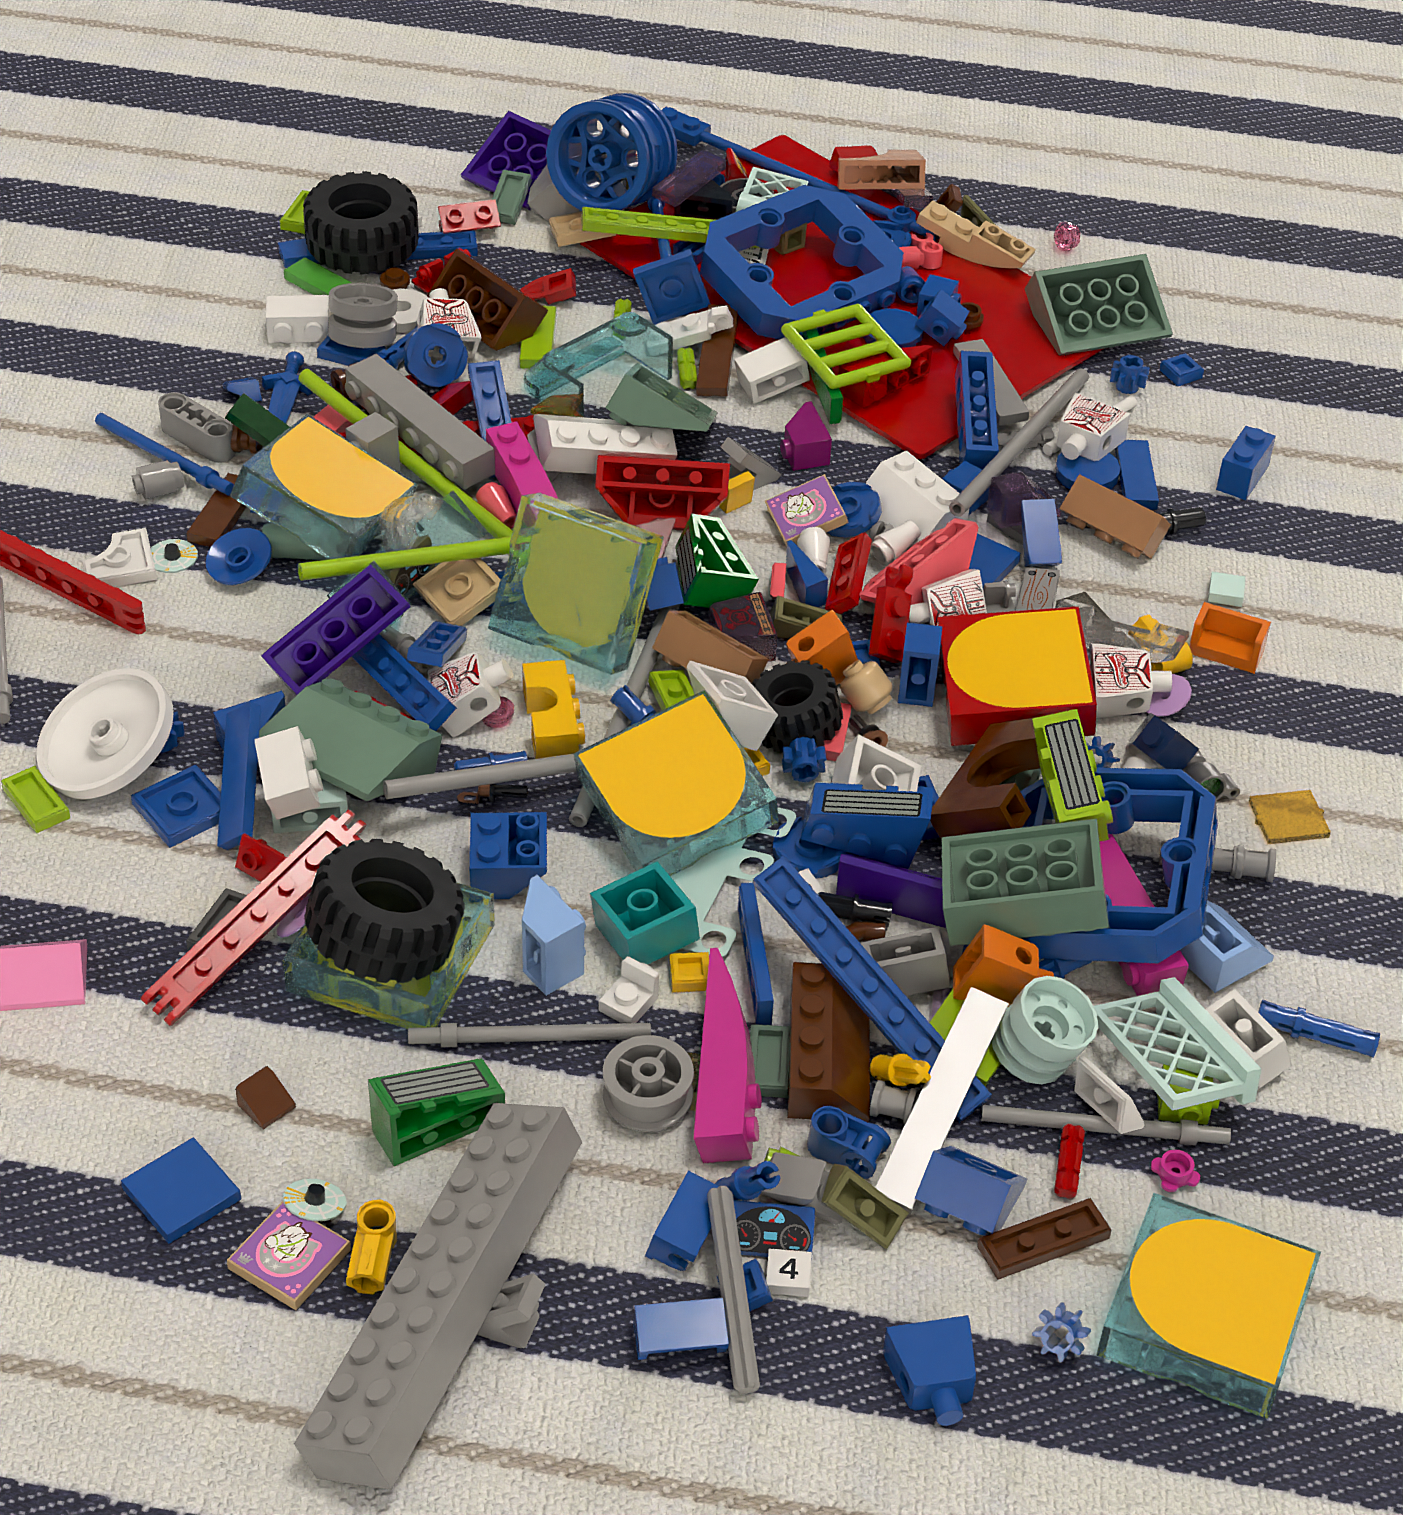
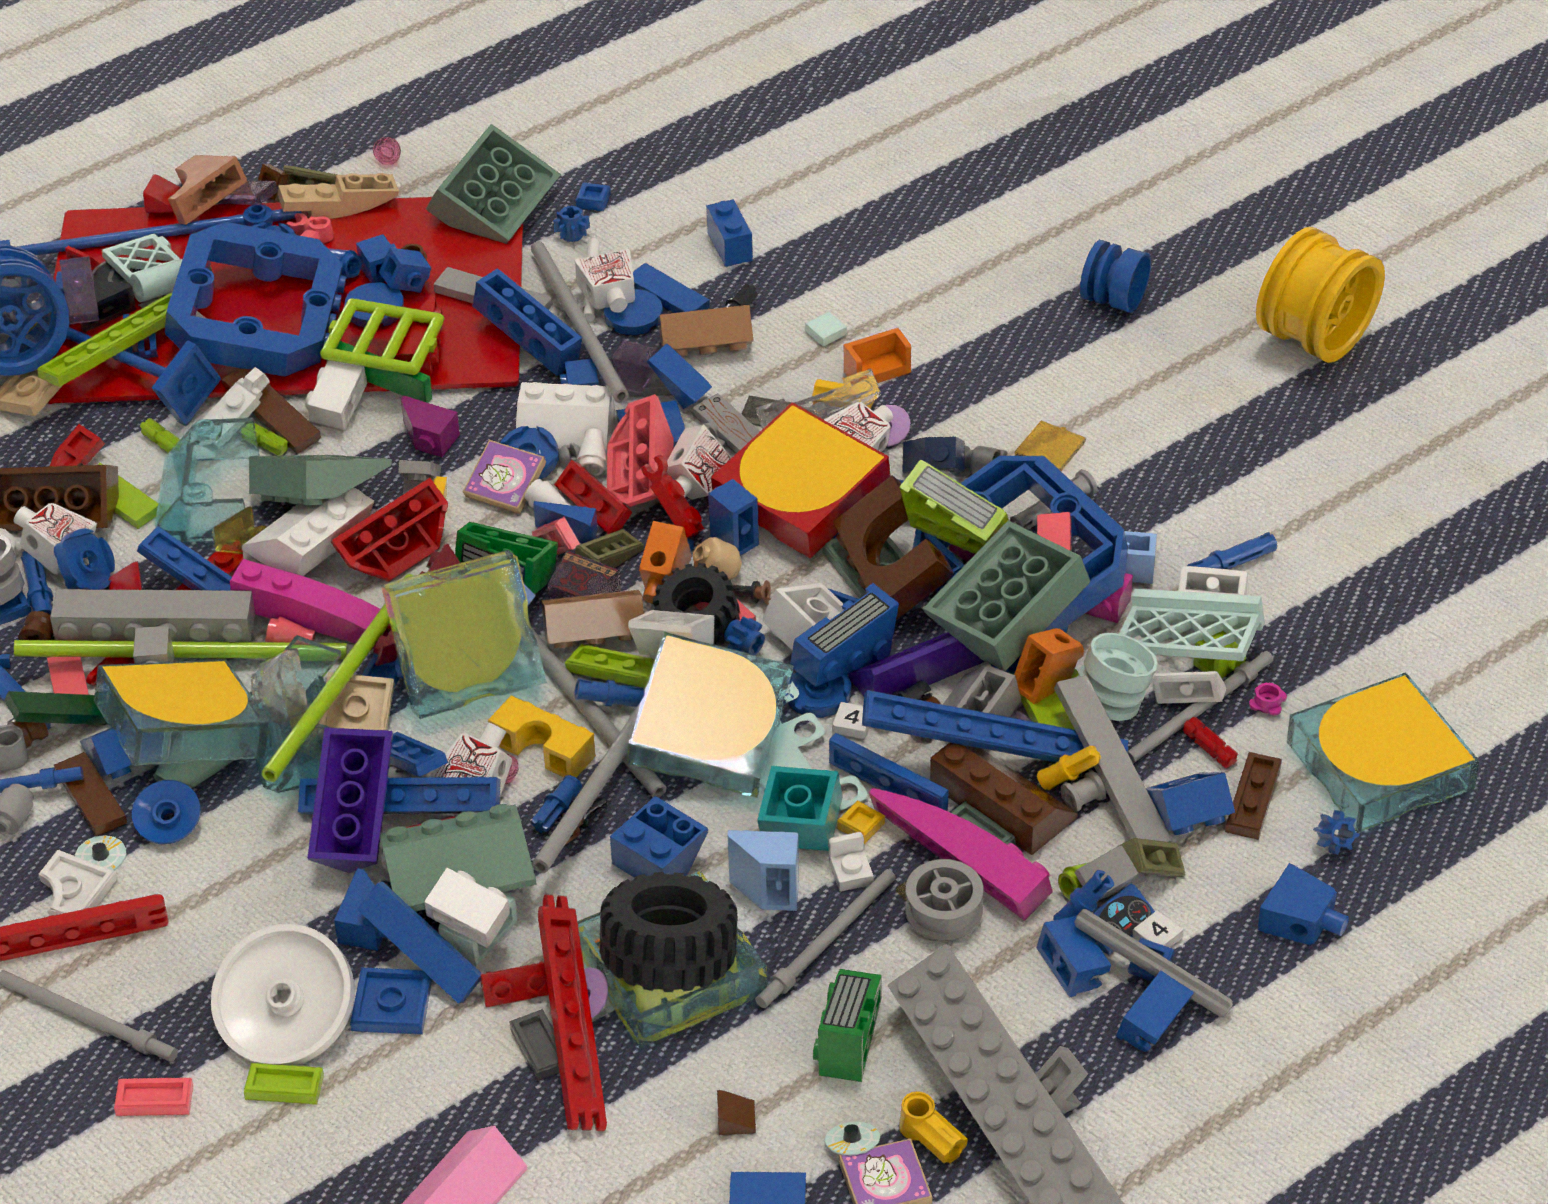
camera: 45 degrees left, 0 degrees up
(845, 1140) = (1088, 836): blue piece -> none
(1133, 868) = (1055, 528): none -> coral tile

